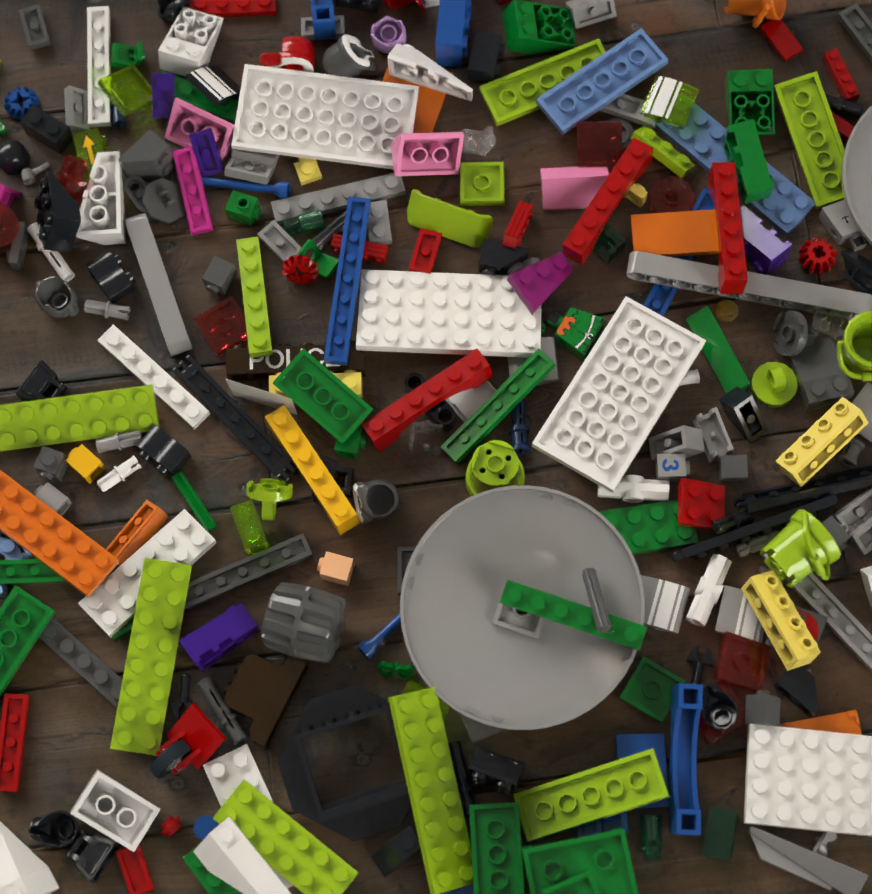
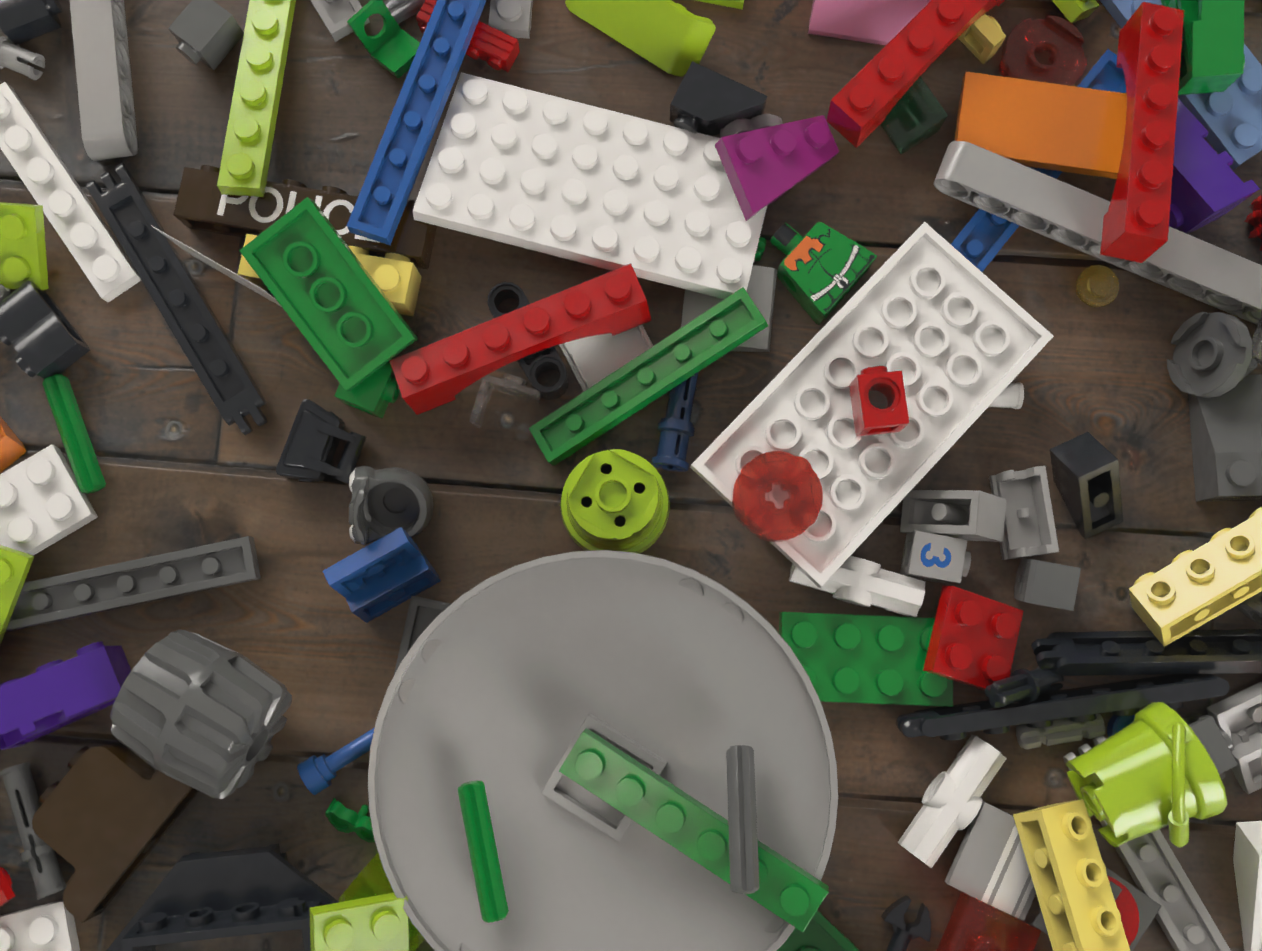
camera: 10 degrees right, 10 degrees up
(223, 326) = (191, 123): clear red plate -> none
(249, 527) = (155, 505): clear neon green brick -> none
(269, 492) = (201, 453): lime tile -> none
(305, 265) = (359, 42): red gear -> none
(312, 469) = (300, 471): yellow arch -> none
(336, 568) = (292, 614): light nougat brick -> none
(381, 536) = (382, 575): none -> blue slope
(425, 251) = (583, 63): red plate -> none
(469, 654) = (483, 851): none -> green axle
(518, 225) = (757, 47): red piece -> none
(585, 437) = (794, 476): none -> clear red plate
(621, 400) = (872, 420): none -> red brick
(664, 604) = (868, 808): slope -> none
(718, 351) = (1067, 358): green slope -> none
(774, 384) = (1153, 439): lime tile -> none

